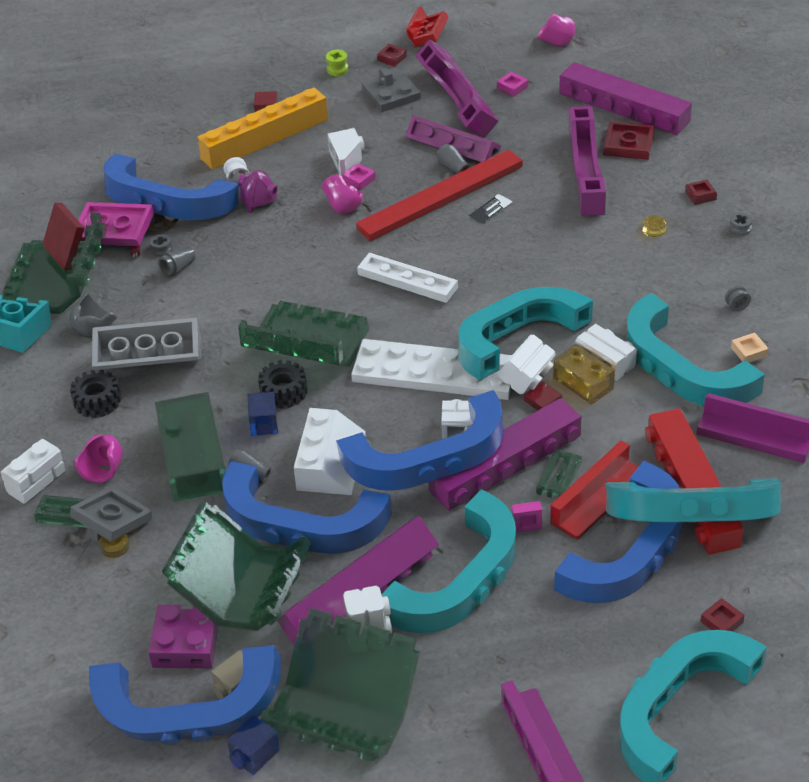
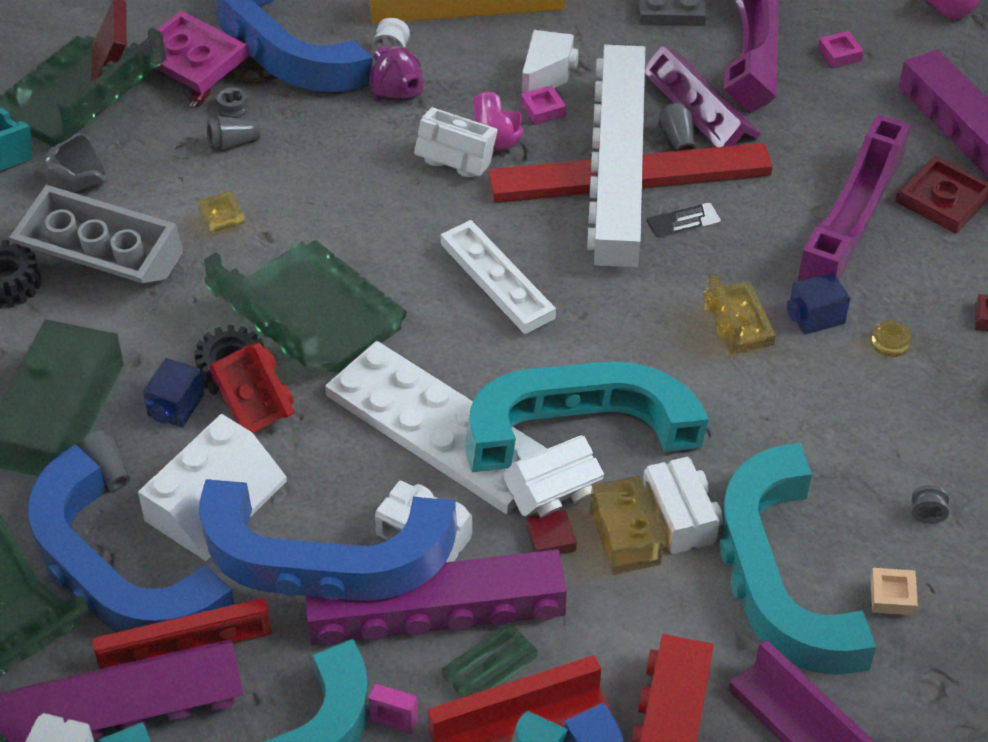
camera: 25 degrees right, 5 degrees up
(207, 307) = (221, 211): none -> clear yellow plate
(314, 386) = (252, 387): none -> red bracket
(327, 213) = (455, 142): none -> white brick
(375, 531) = (232, 622): none -> red tile
(433, 184) = (619, 157): none -> white brick
(563, 244) = (738, 316): none -> clear yellow bracket
(604, 221) = (818, 303): none -> clear blue brick

